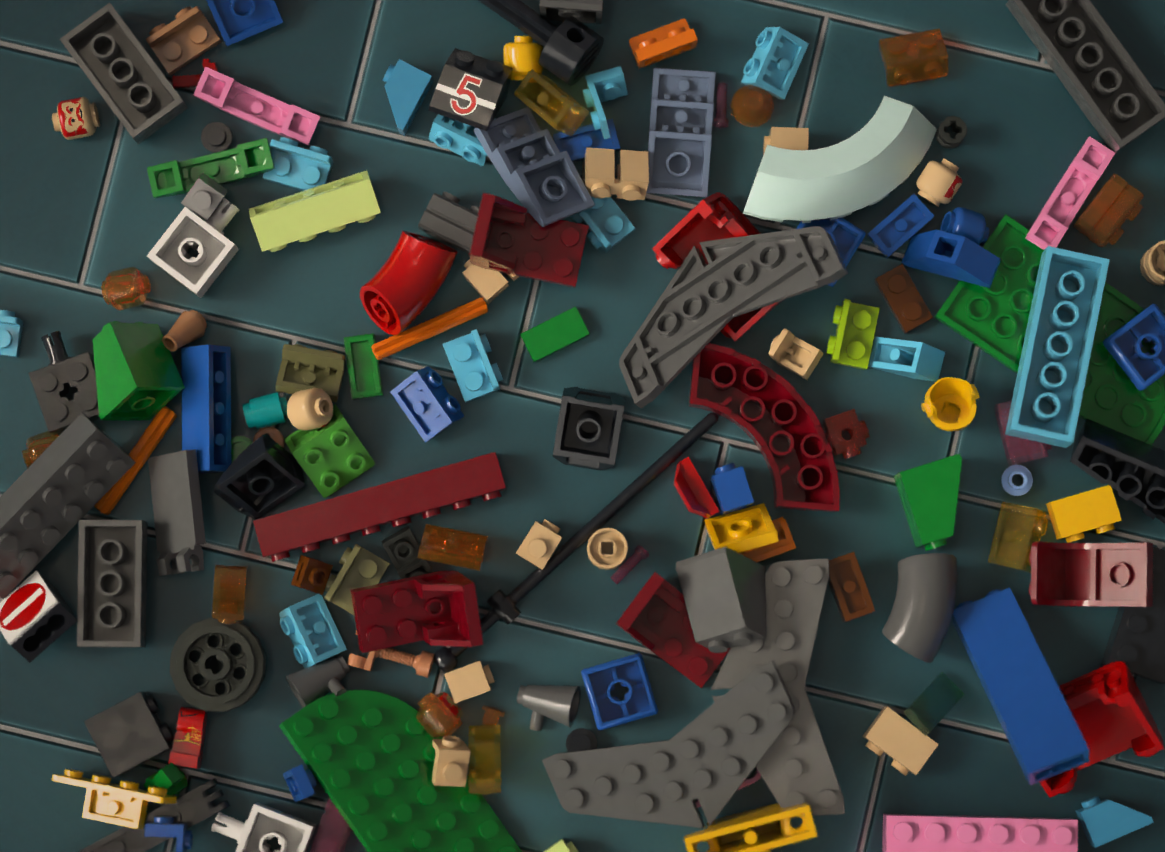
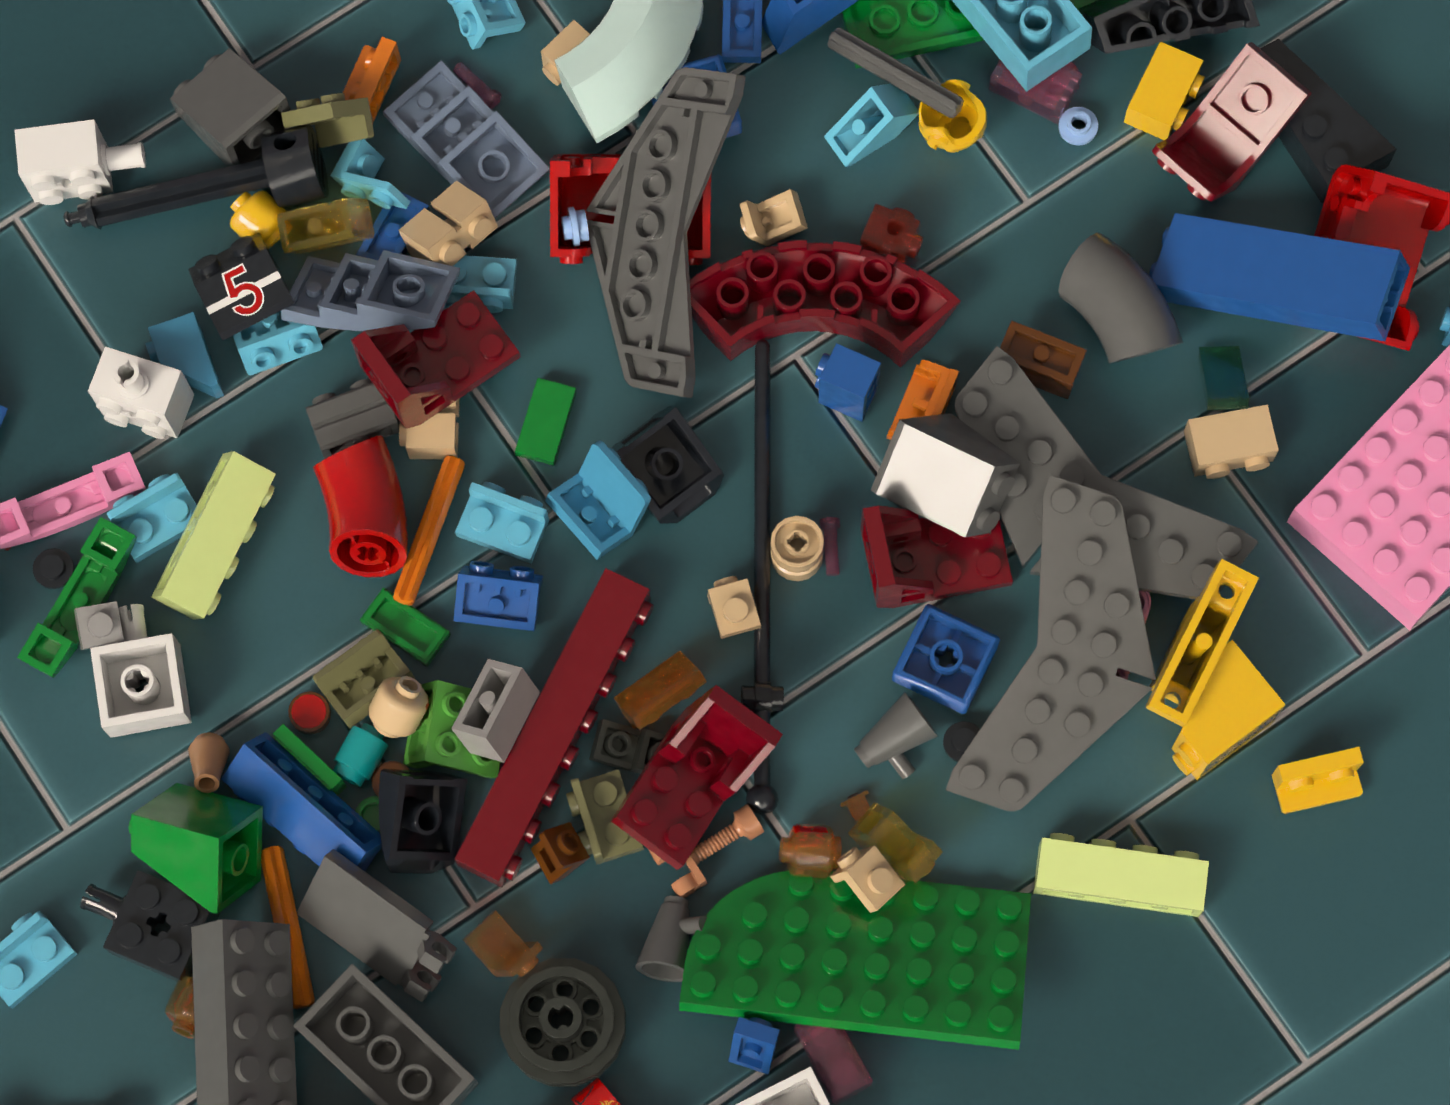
camera: 45 degrees left, 10 degrees down
(125, 288) = (112, 783): clear orange head -> none
(237, 385) = (309, 759): none -> green tile
(265, 359) = (309, 713): none -> red tile
(311, 631) = (614, 904): medium azure bracket -> none
(355, 467) = (495, 710): none -> light grey brick
(359, 95) = (141, 393): none -> white brick
(469, 681) = (804, 793): tan brick -> none
(531, 412) = (601, 501): none -> dark azure bracket
(616, 47) = (335, 119): none -> olive bracket
(683, 245) = (575, 226): none -> light blue plate
(693, 490) = (815, 421): red slope -> none
(742, 529) = (898, 397): yellow tile -> none
(752, 105) = (503, 57): clear orange brick -> none
(853, 335) = (804, 152): lime bracket -> none
(903, 298) = (812, 80): reddish brown plate -> none
(930, 500) = (1026, 211): green slope -> none
(946, 346) = (895, 72): none -> dark grey axle
(1014, 534) = (1132, 169): clear yellow bracket -> none

